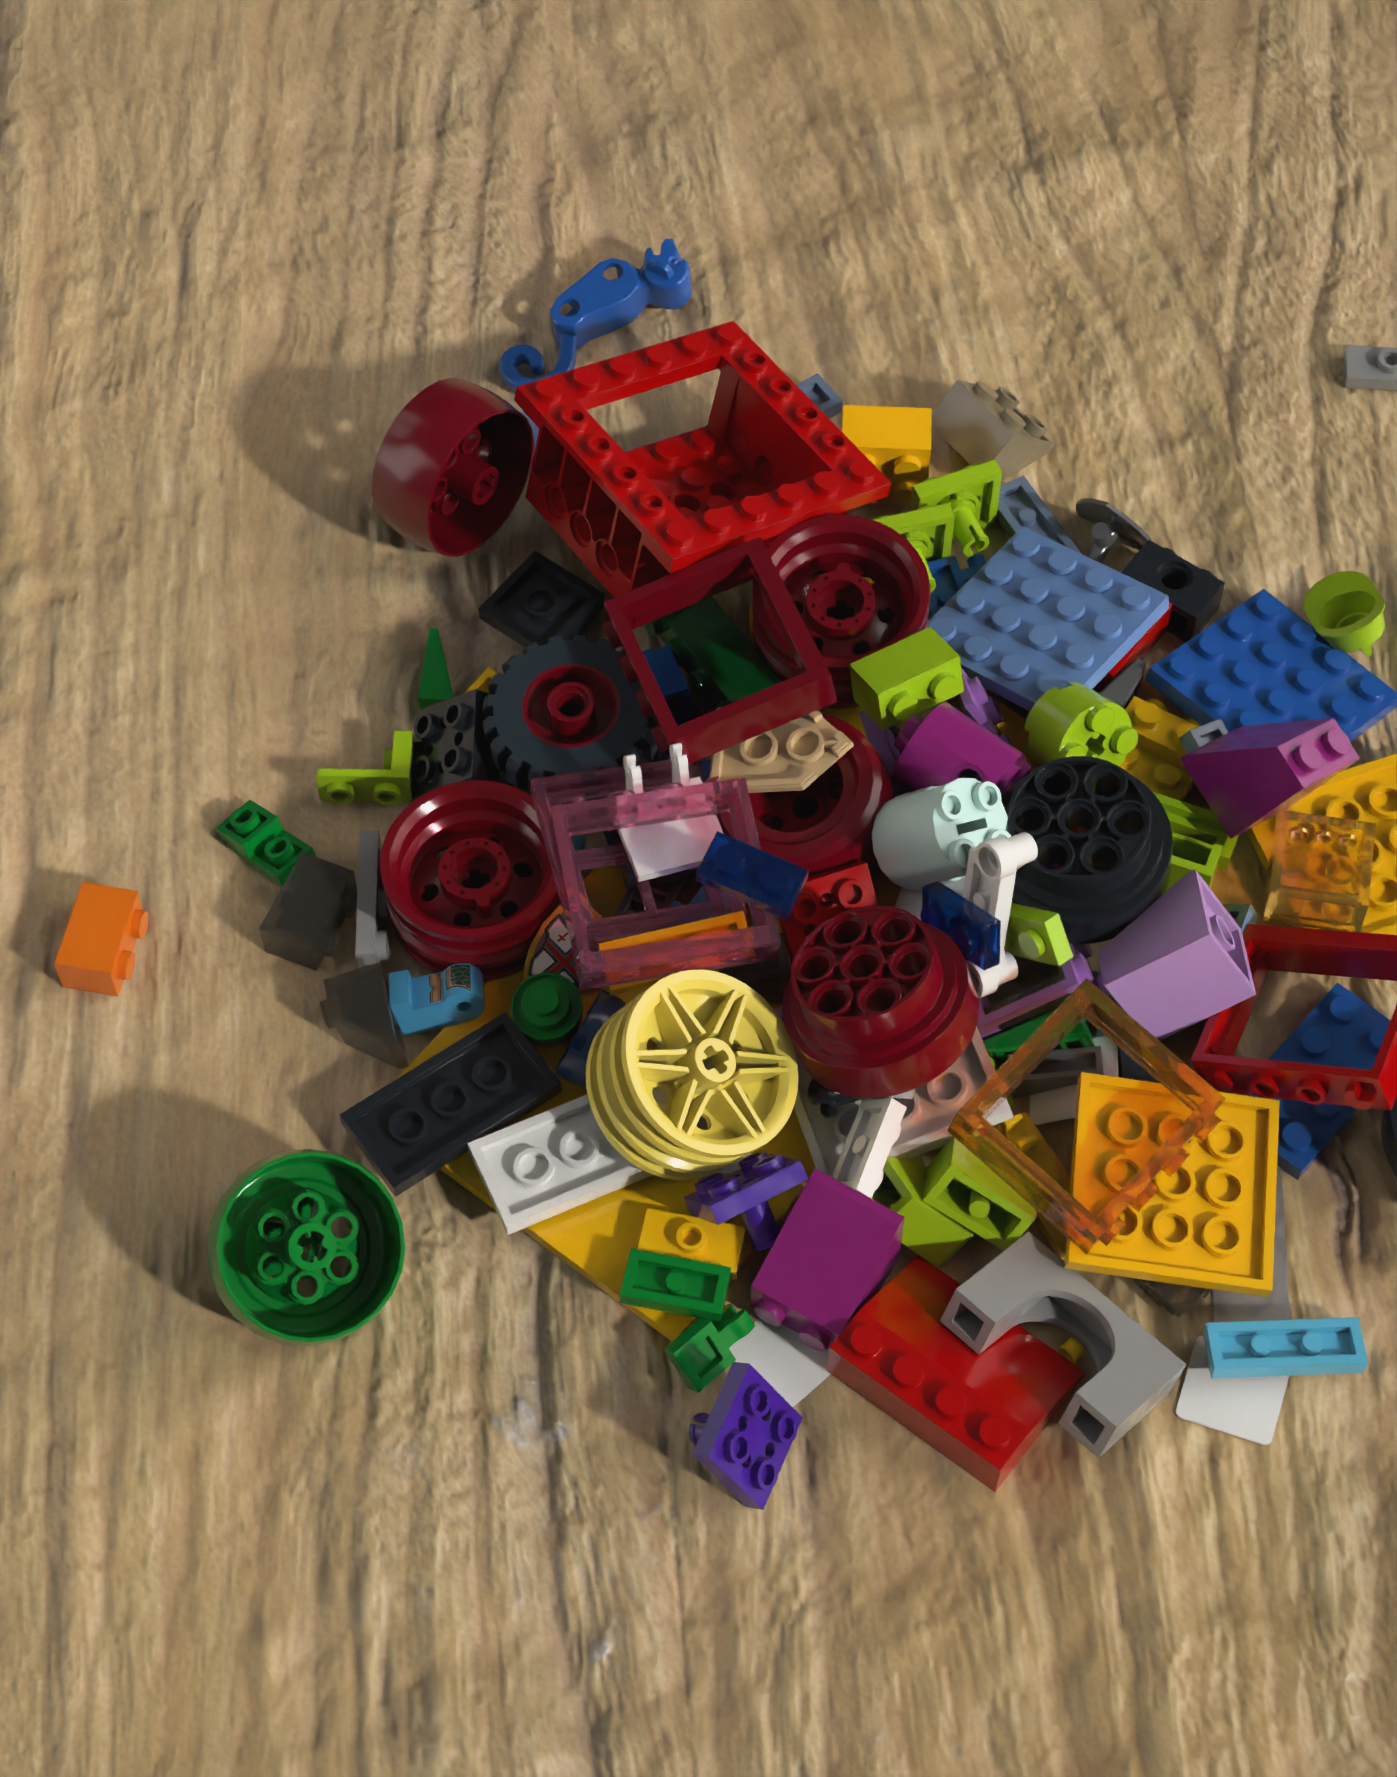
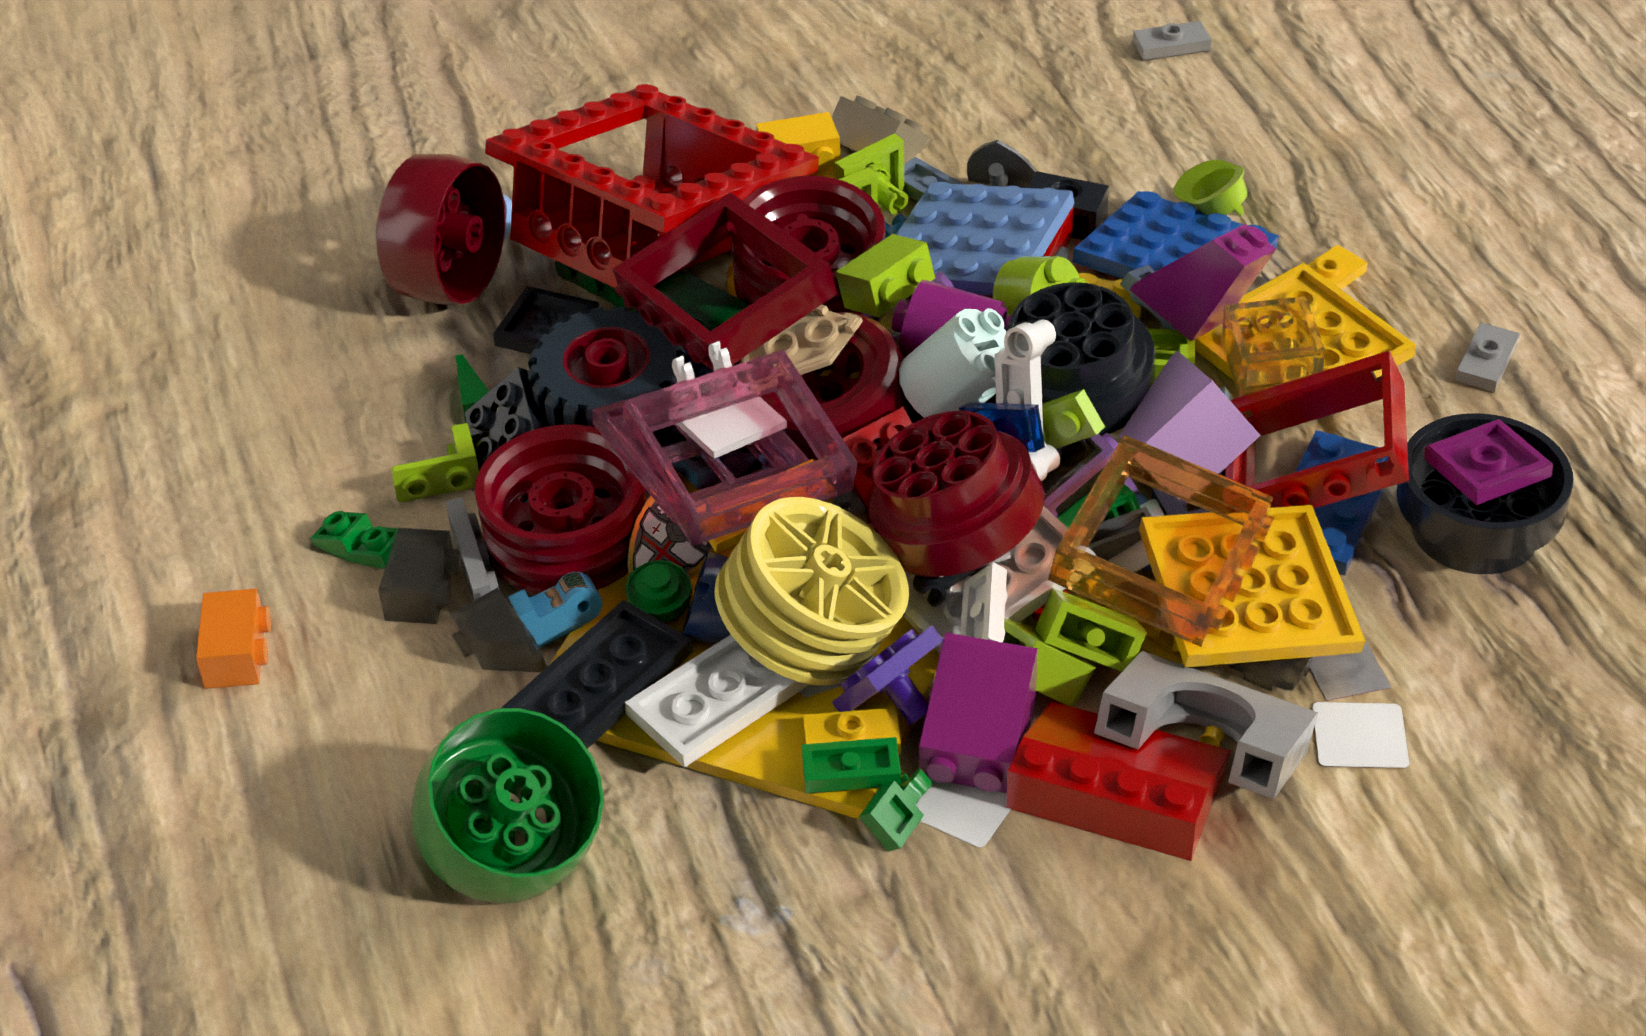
camera: 15 degrees left, 15 degrees down
(604, 307) = (567, 91): blue animal -> none
(746, 1435) = (958, 860): dark purple plate -> none
(752, 875) = (816, 415): clear blue plate -> none
(1285, 1347) = (1391, 687): medium azure plate -> none

